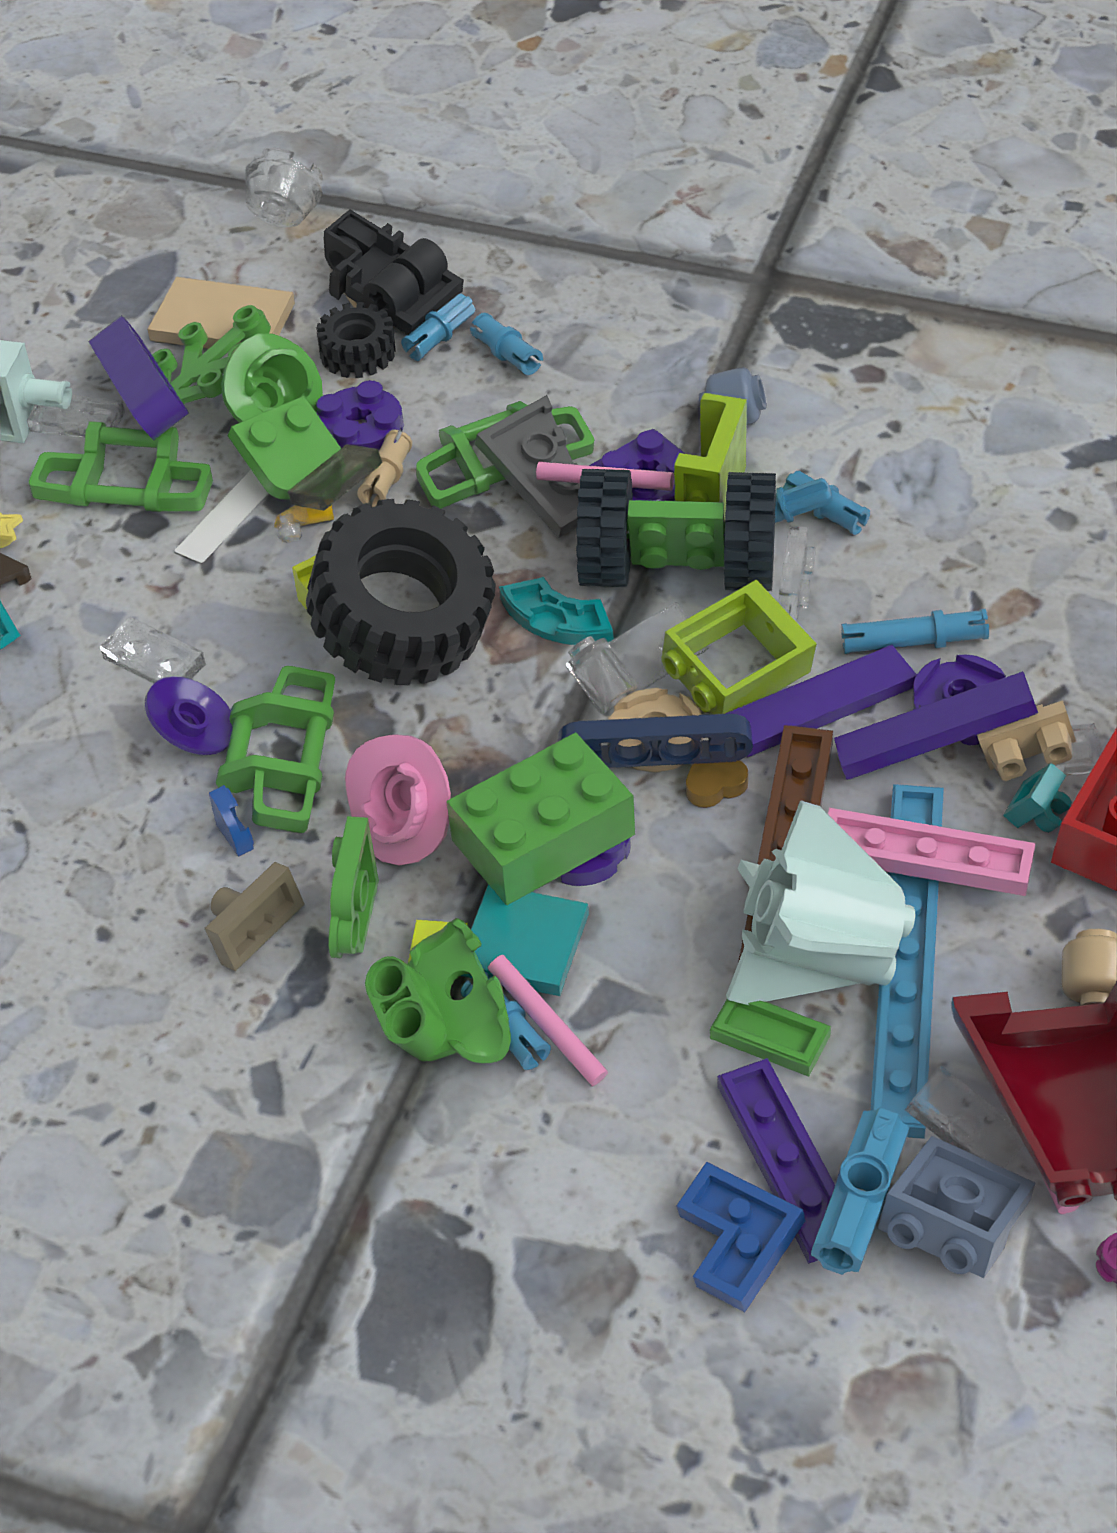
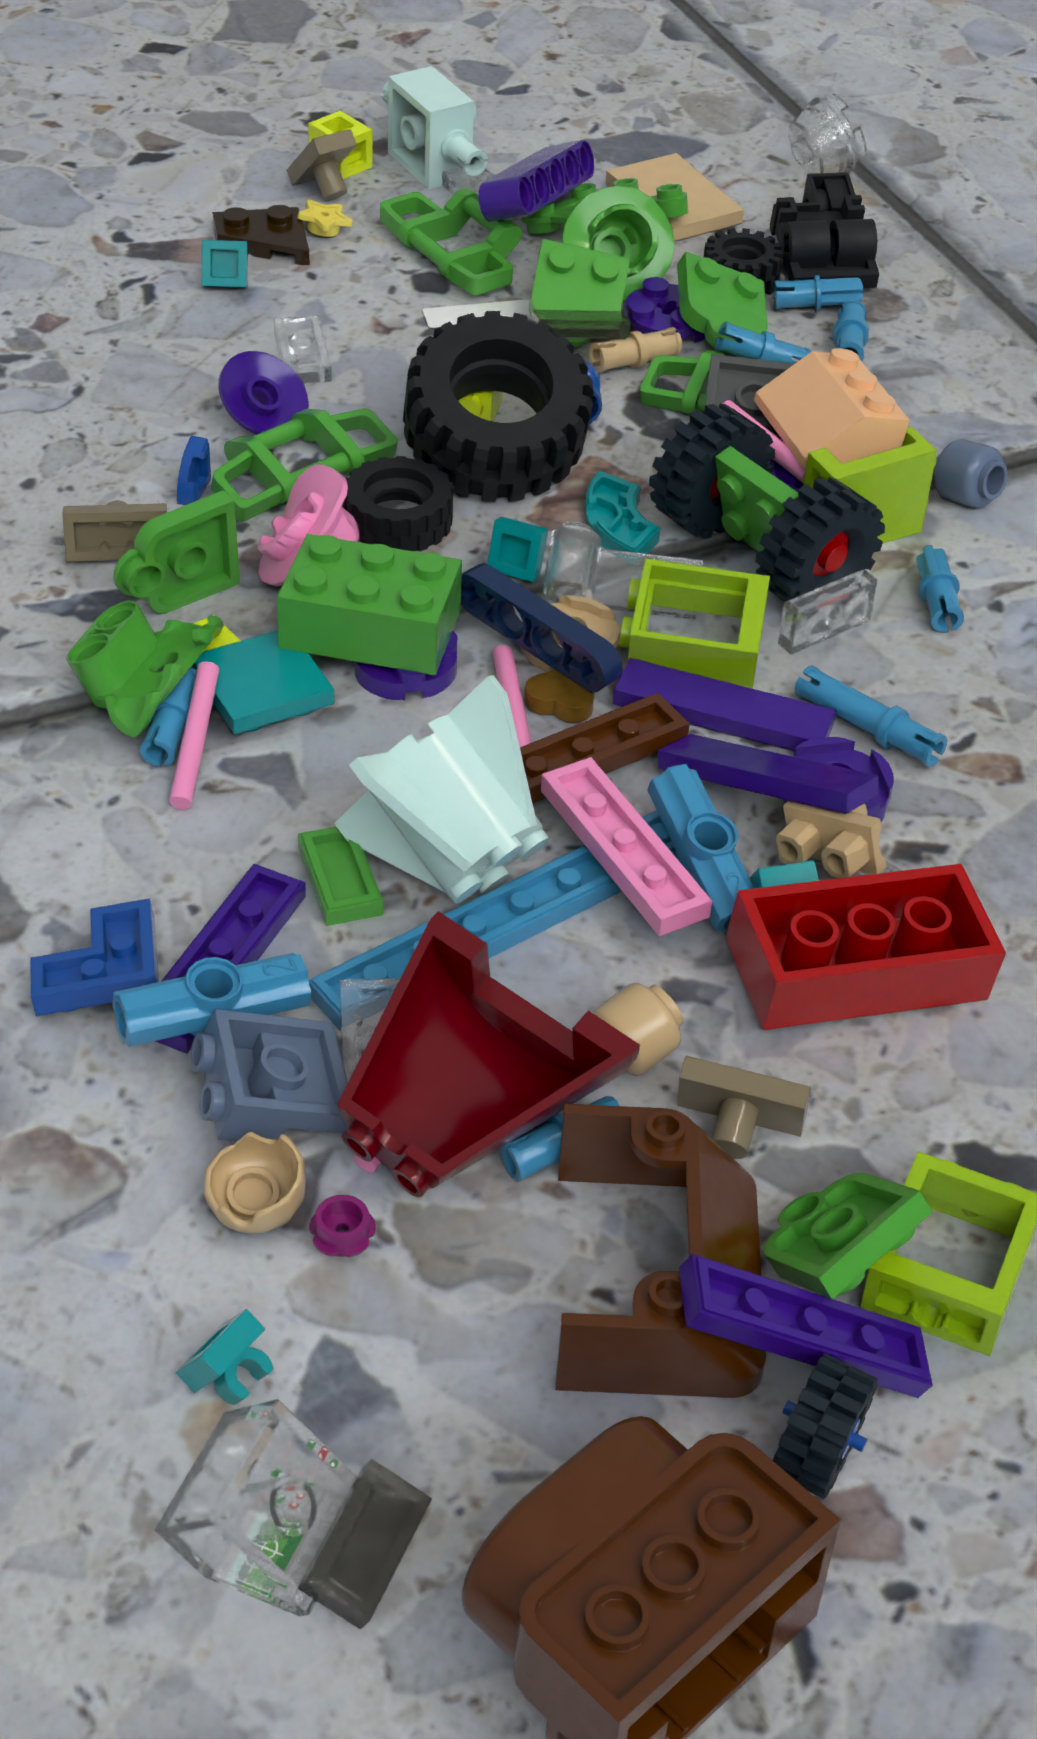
camera: 40 degrees right, 5 degrees down
(399, 385) = (719, 294): none -> bright green plate
(413, 695) = (400, 480): none -> black tyre
(476, 401) = (756, 345): none -> dark azure pin
(542, 692) = (517, 548): none -> teal tile
(631, 419) = (833, 406): none -> light nougat slope
(695, 813) = (508, 678): none -> bright pink bar
(801, 499) = (898, 562): dark azure axle -> none
(969, 806) = (701, 839): none -> dark azure piece
(1053, 1280) = (256, 1183): none -> tan hair

